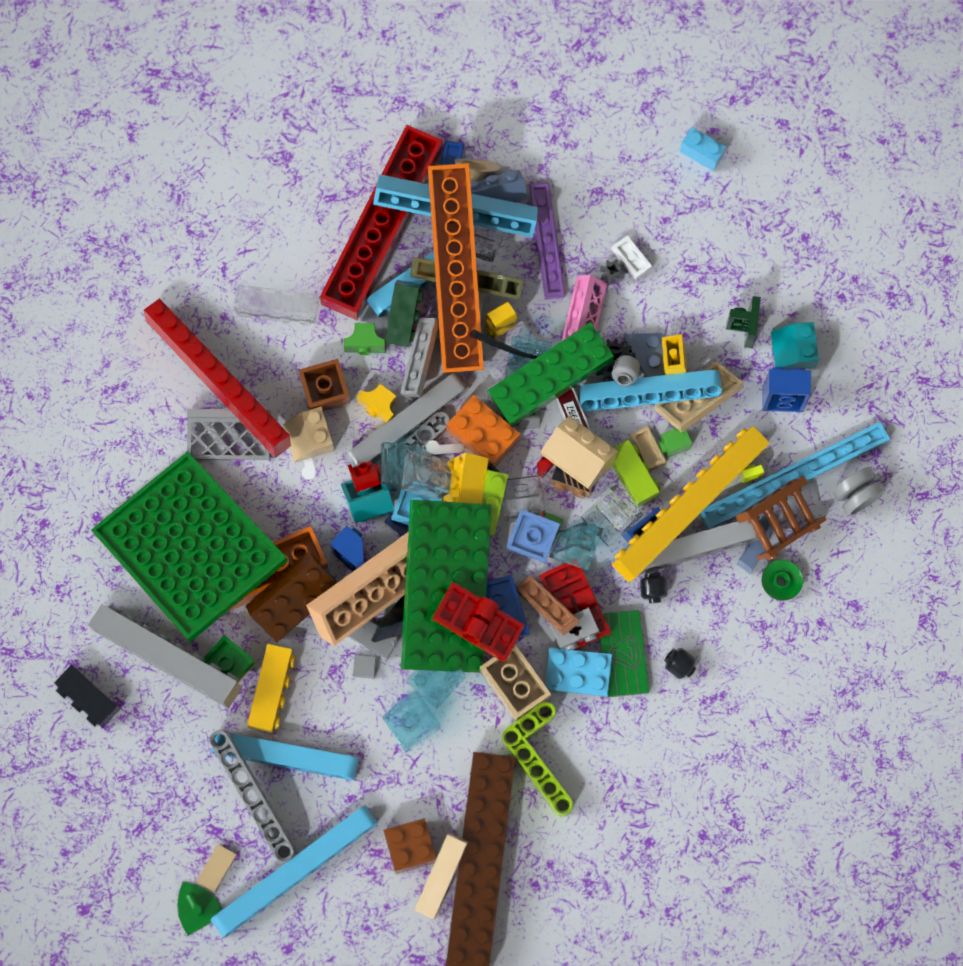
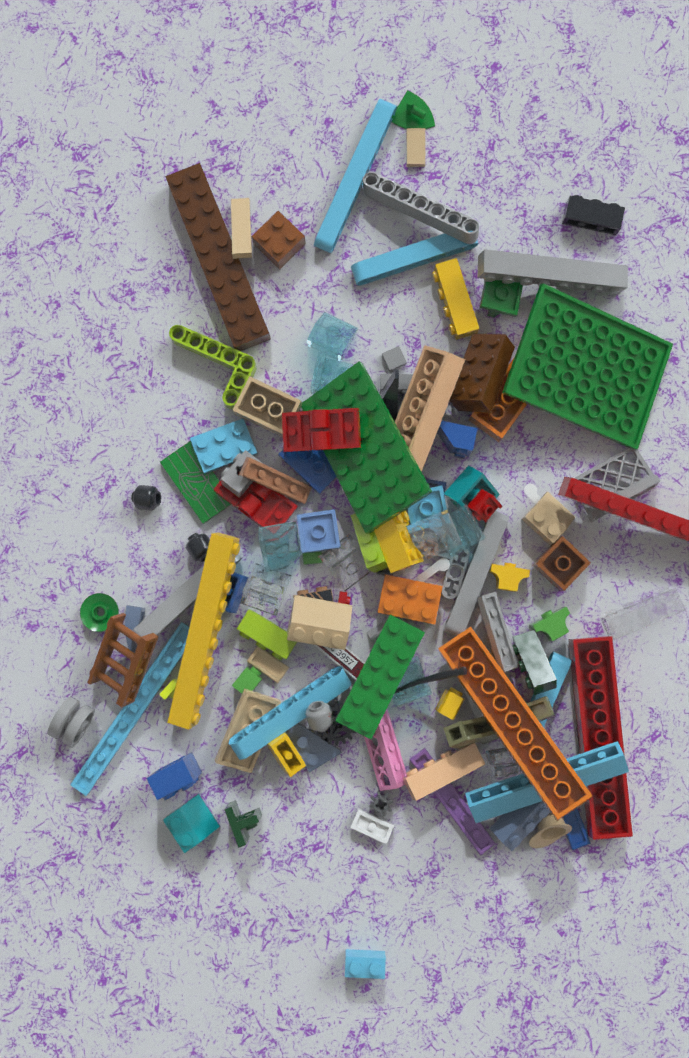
camera: 155 degrees right, 10 degrees up
(541, 267) = (443, 771): none -> light nougat brick

